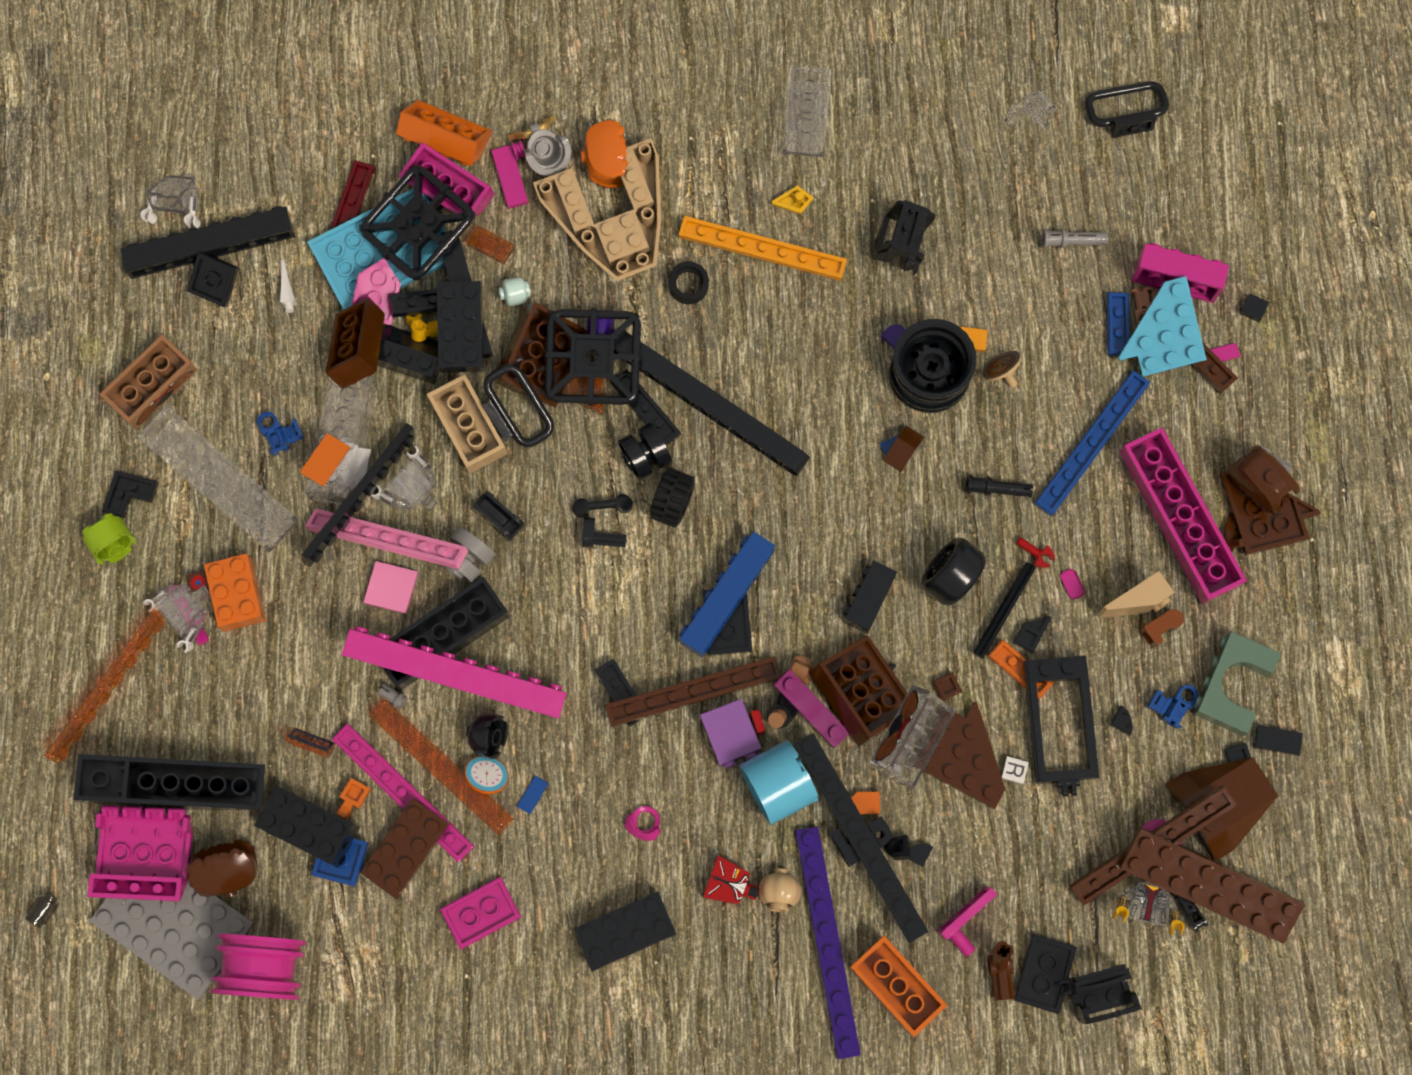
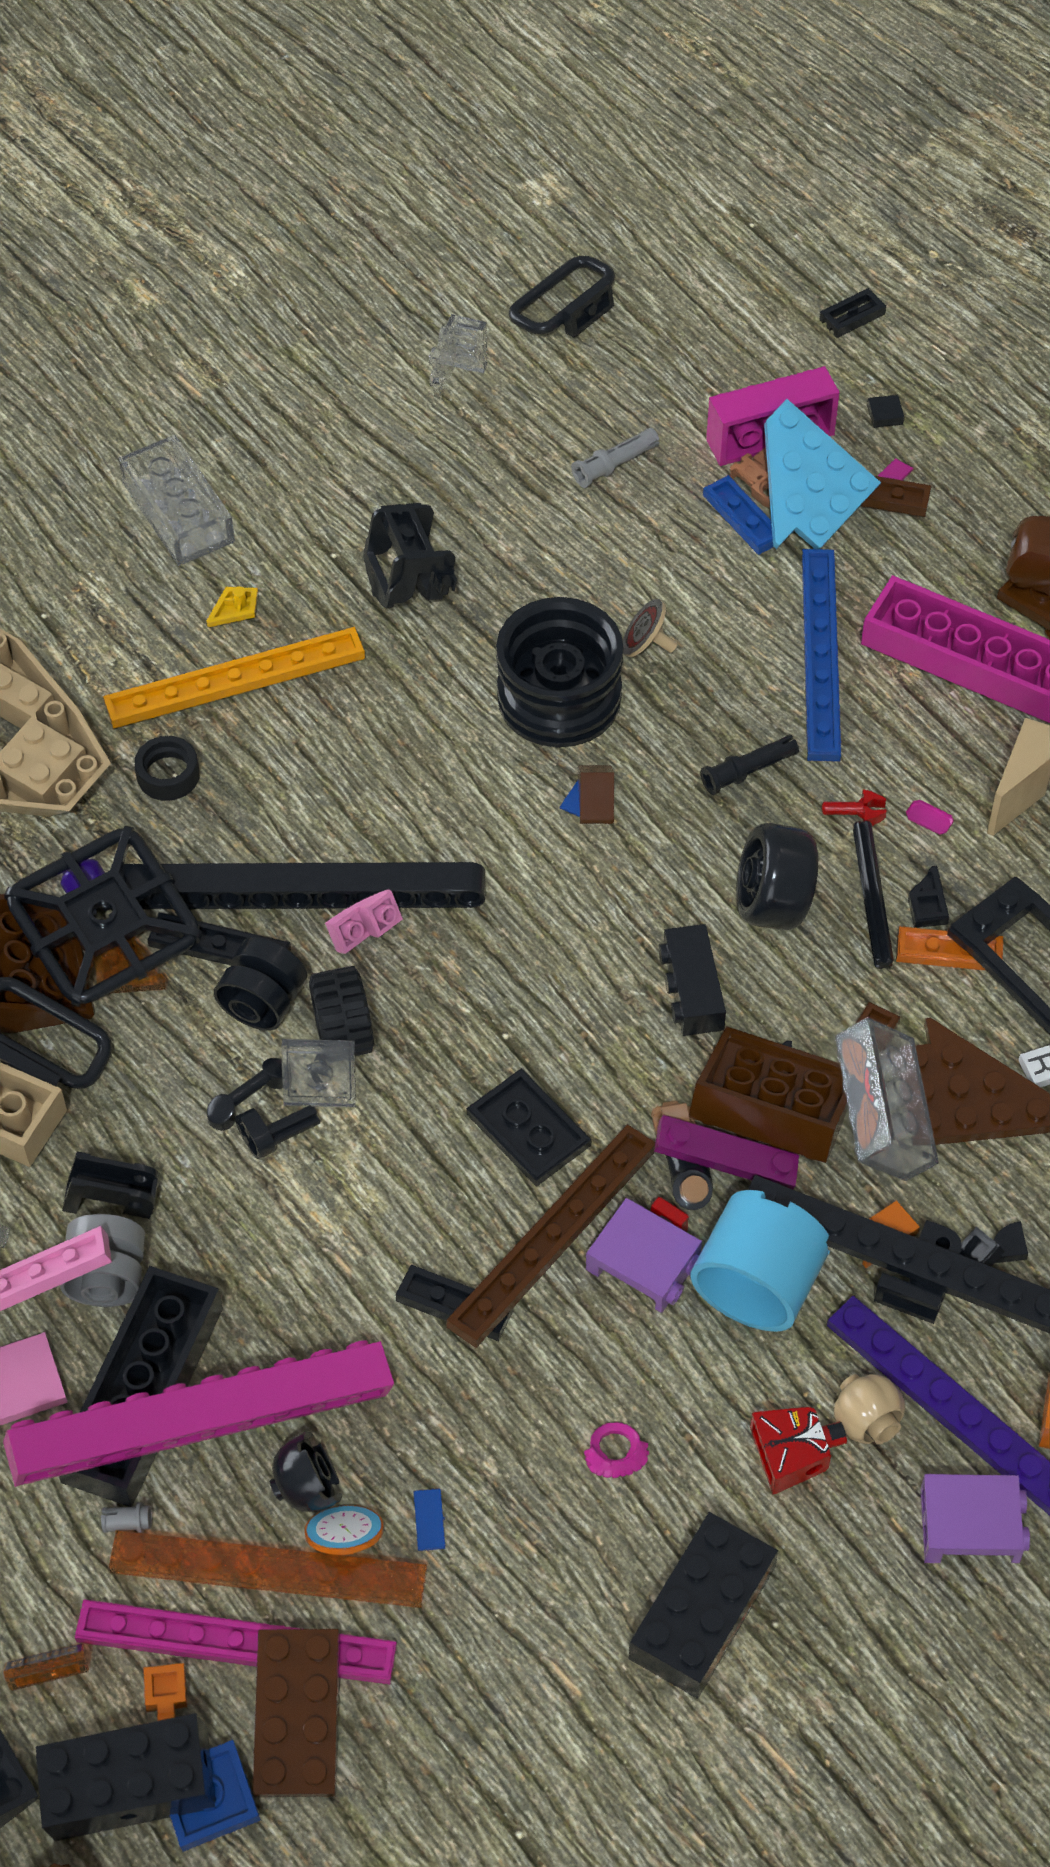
camera: 35 degrees left, 20 degrees down
(480, 913) = (474, 1729): dark pink tile -> none
(639, 523) = (318, 1073): none -> clear tile
(727, 594) = (505, 1087): blue brick -> none
(732, 446) = (364, 919): none -> bright pink slope
(786, 982) = (973, 1516): none -> medium lavender panel
(892, 334) = (481, 678): dark purple tile -> none
(1274, 230) = (856, 315): none -> black tile

